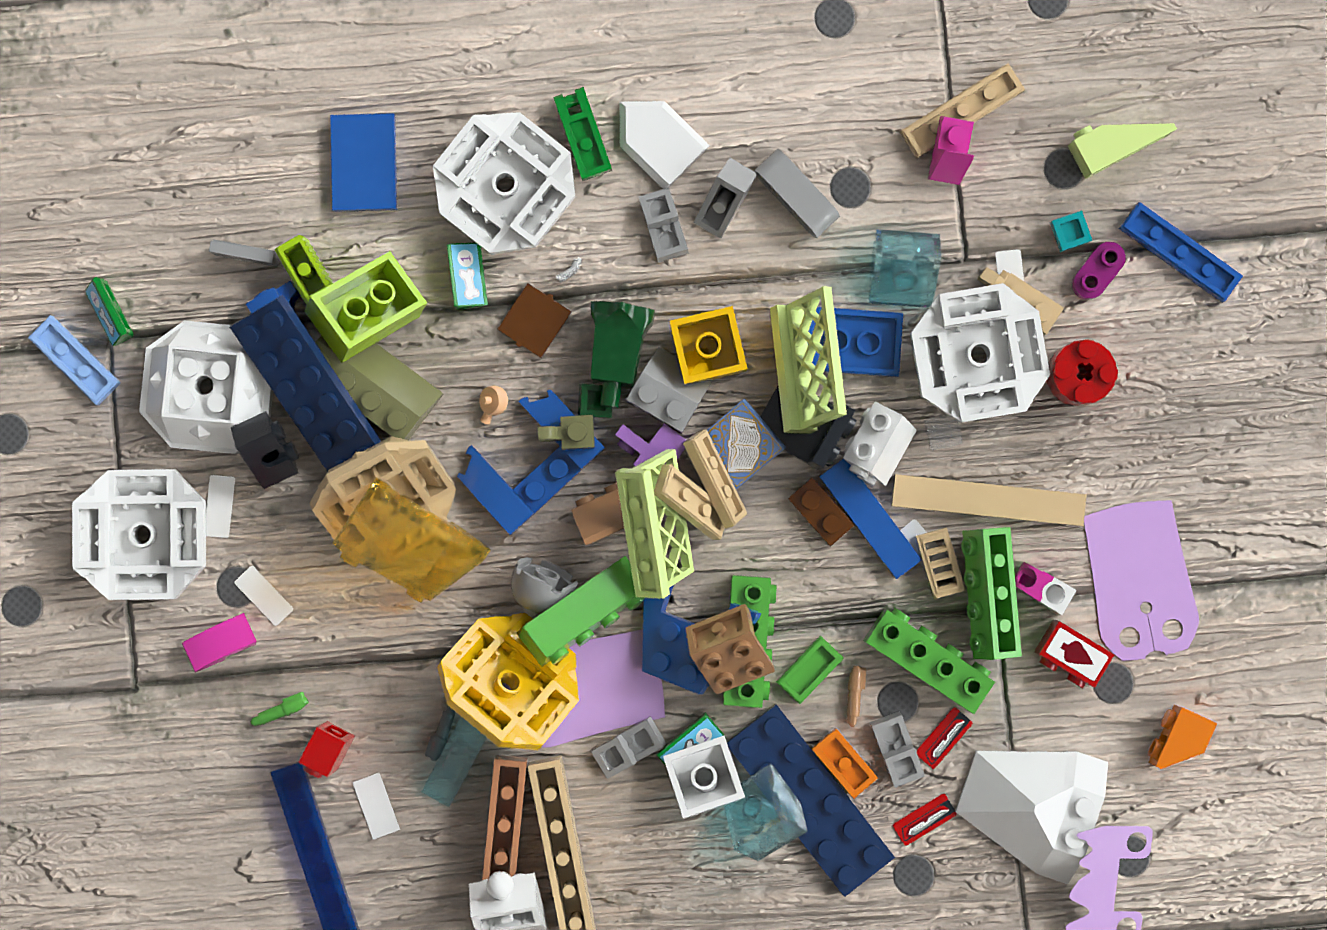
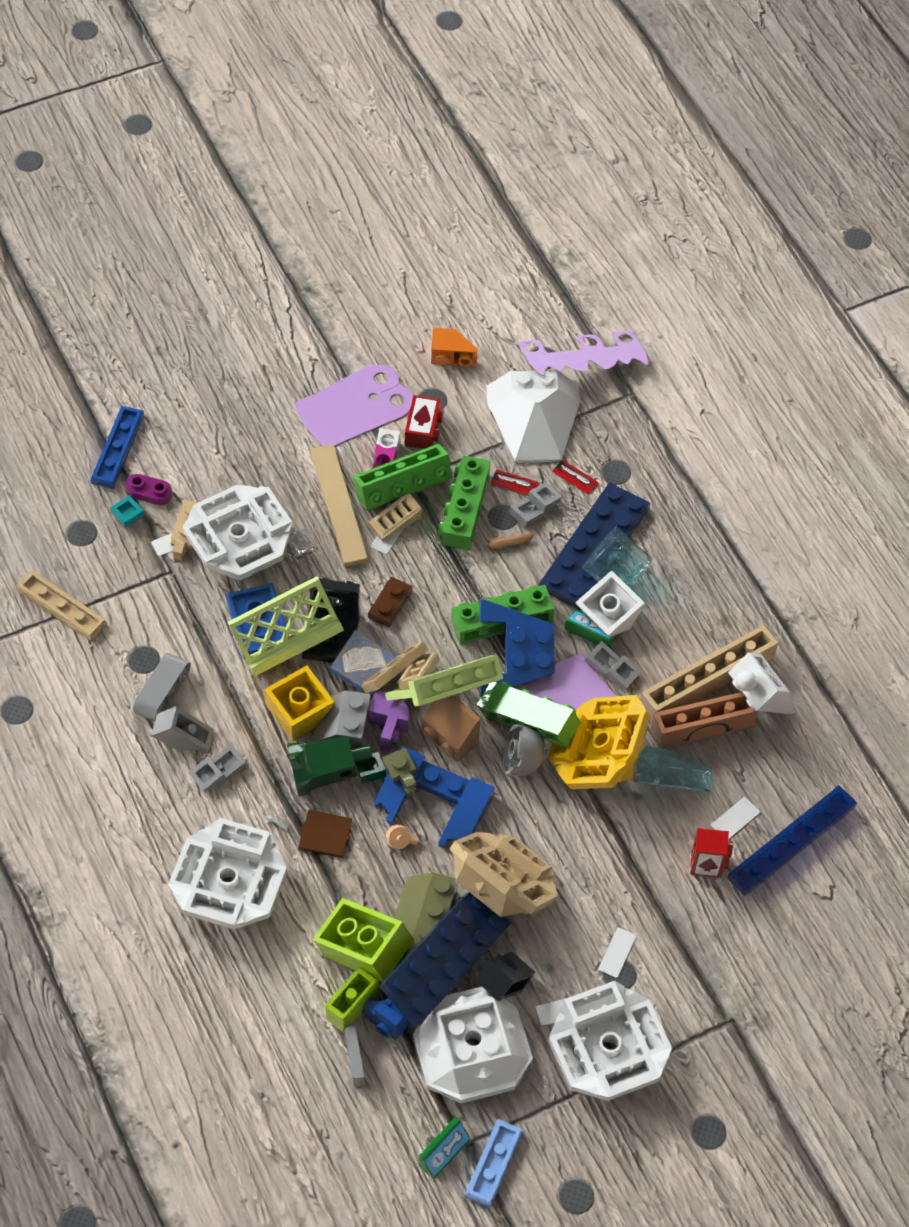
camera: 115 degrees left, 30 degrees down
(219, 642) = (667, 965): dark pink slope -> none
(289, 706) = (694, 903): bright green piece -> none
(363, 162) = (247, 997): blue tile -> none
(407, 543) = (530, 834): clear yellow windscreen -> none
(438, 741) = (669, 791): dark grey piece -> none
(467, 275) = (309, 891): slope -> none
(583, 135) = (164, 846): green plate -> none
(658, 140) = (154, 794): white tile -> none
(728, 650) = (512, 608): medium nougat bracket -> none
(810, 669) = (504, 573): bright green tile -> none
(844, 763) = (559, 530): orange plate -> none
(870, 518) = (384, 566): blue tile -> none
(878, 444) = (327, 566): white brick -> none
(904, 268) = (191, 601): clear light blue slope -> none
(950, 151) = (96, 599): dark pink slope -> none
(1099, 367) = (225, 469): red brick -> none
(1109, 144) = (59, 508): yellowish green slope -> none

